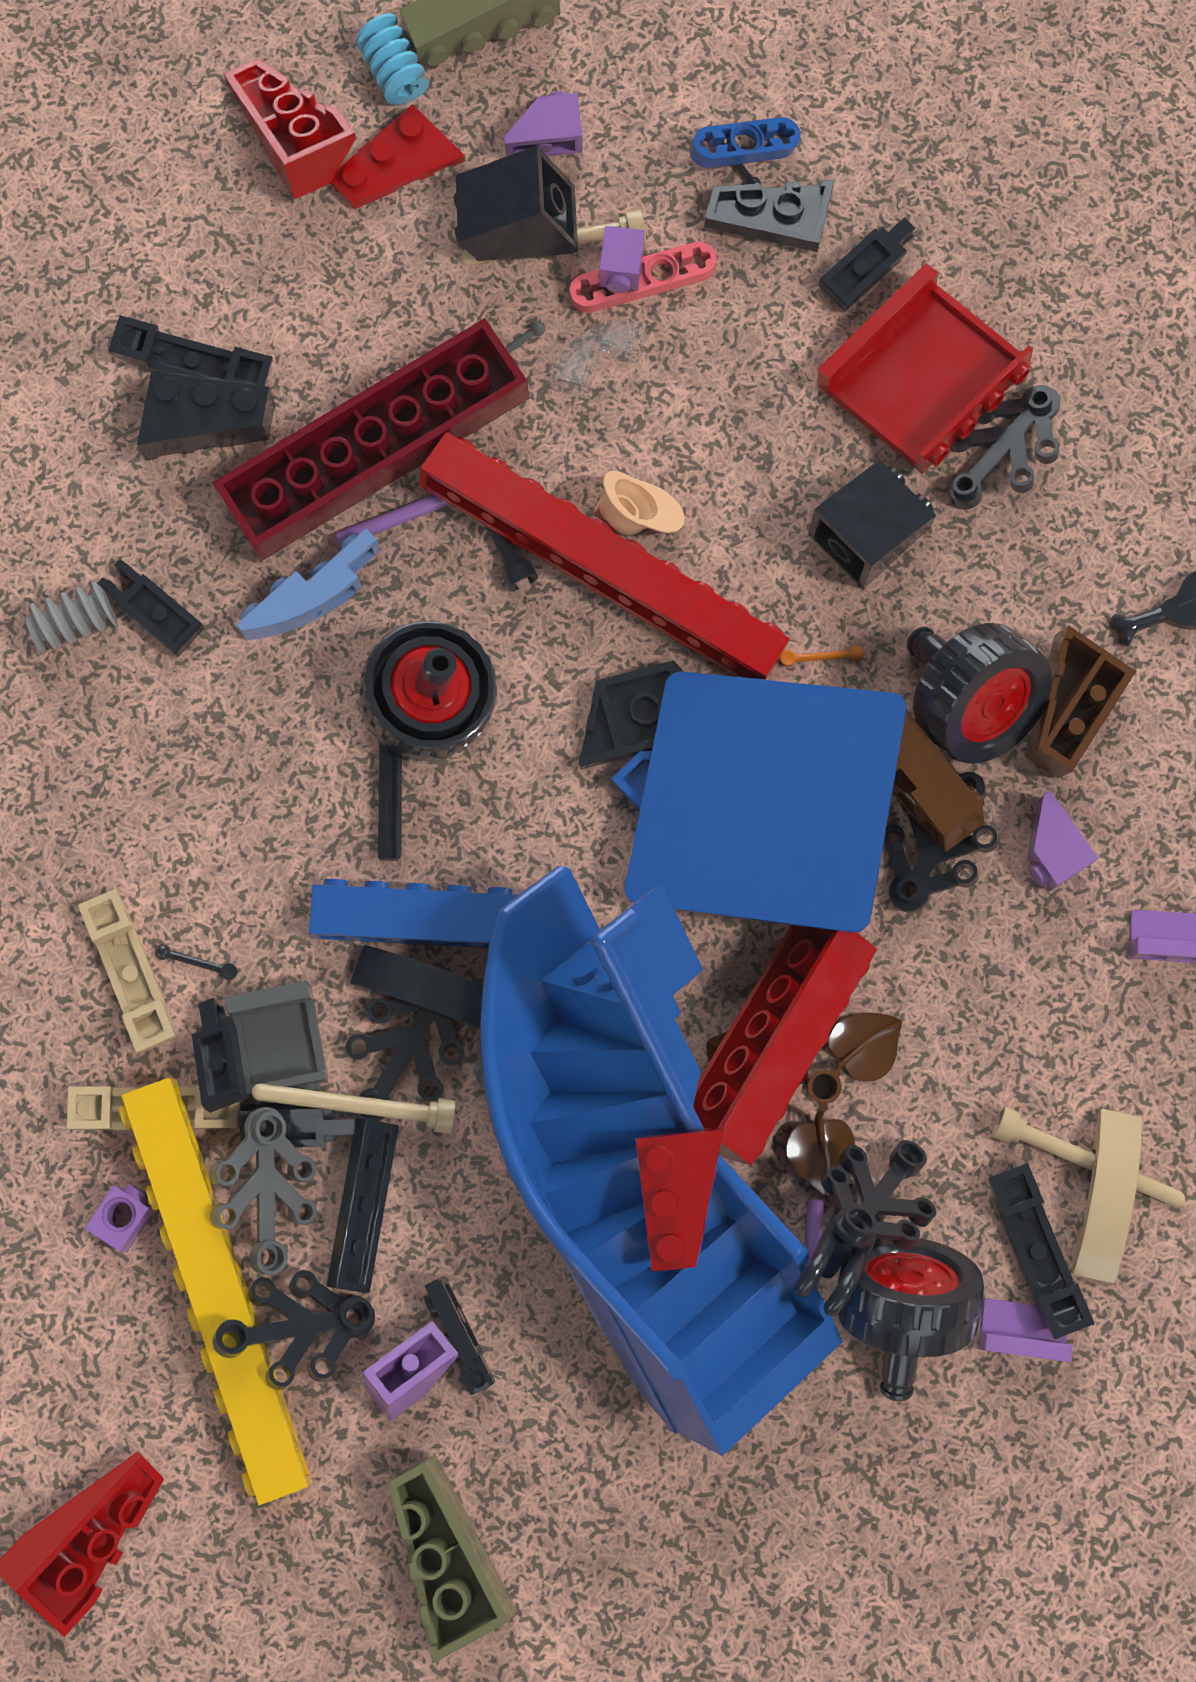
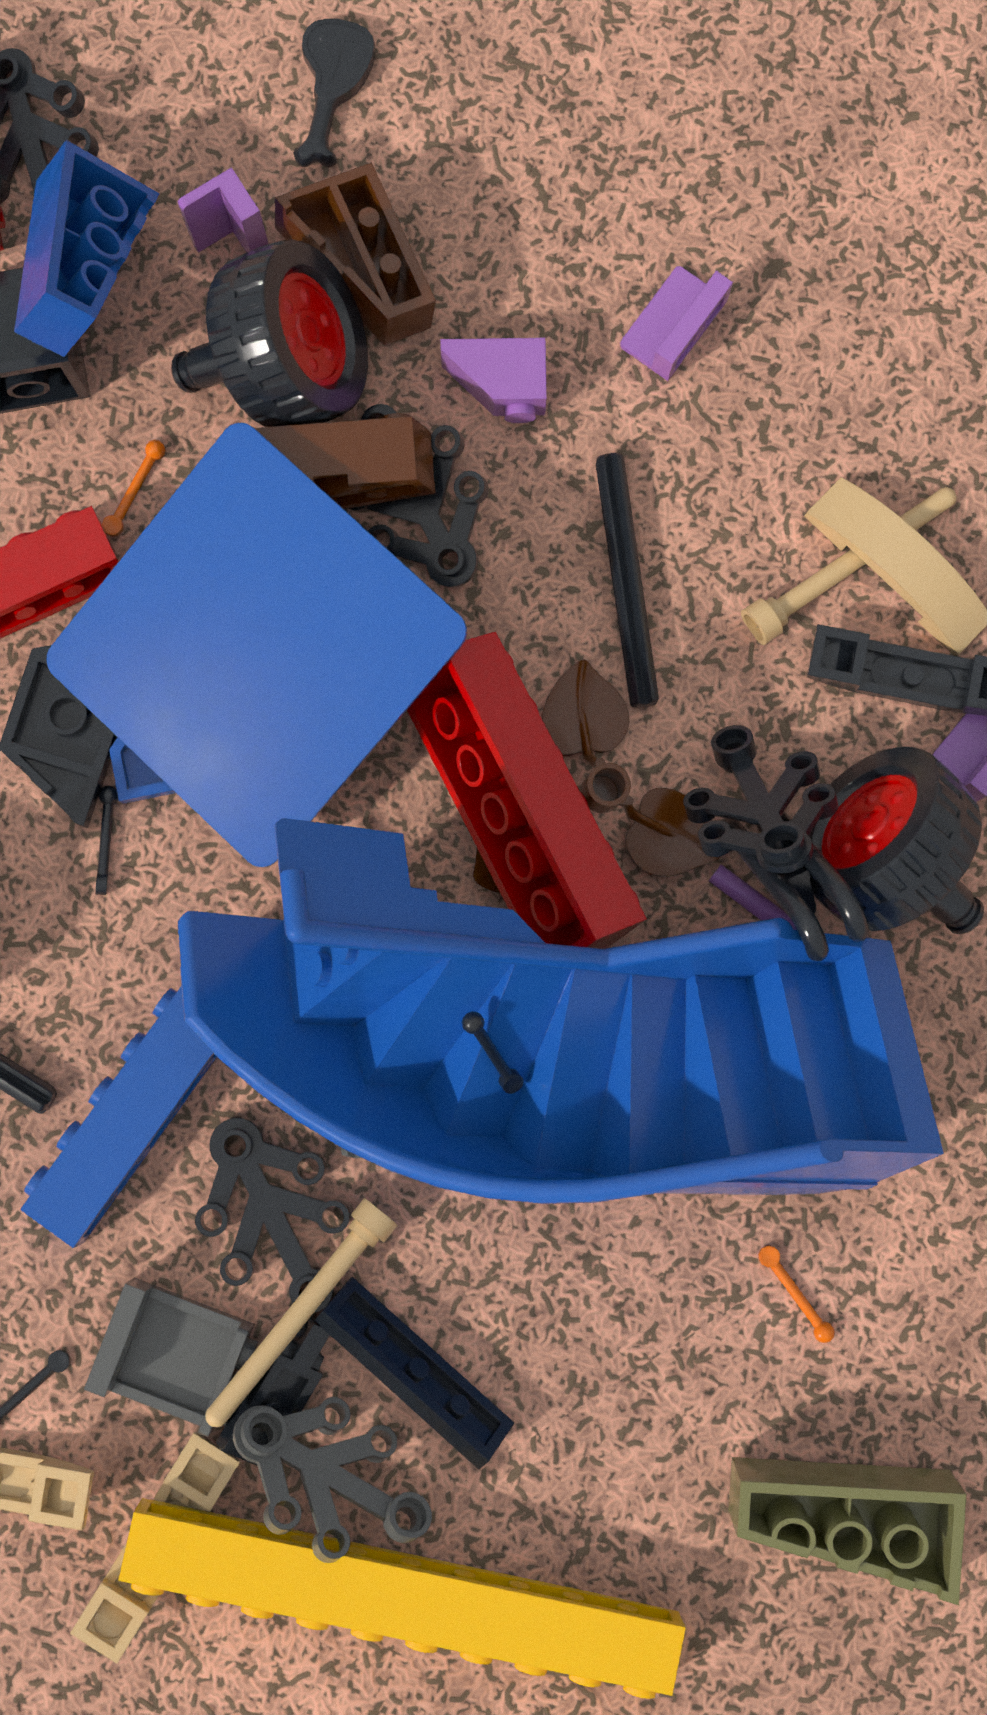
camera: 60 degrees left, 5 degrees up
(103, 1223) = (256, 1680): medium lavender brick -> none
(218, 1058) = (148, 1438): black hinge -> none
(301, 1325) = (506, 1525): black plant -> none
(409, 1370) = (627, 1432): medium lavender slope -> none
(419, 985) = (209, 1159): black slope -> none
(444, 1304) = (622, 1351): black hinge -> none
(556, 1466) = (770, 1257): none -> orange hinge
(591, 1141) = (510, 1079): none -> black hinge
(609, 771) = (108, 797): none -> black hinge
(676, 1193) = (629, 1021): red wing -> none
(951, 522) = (76, 244): none -> blue wedge
(974, 1016) = (627, 580): none -> black axle
(1040, 594) = (220, 209): none -> medium lavender panel

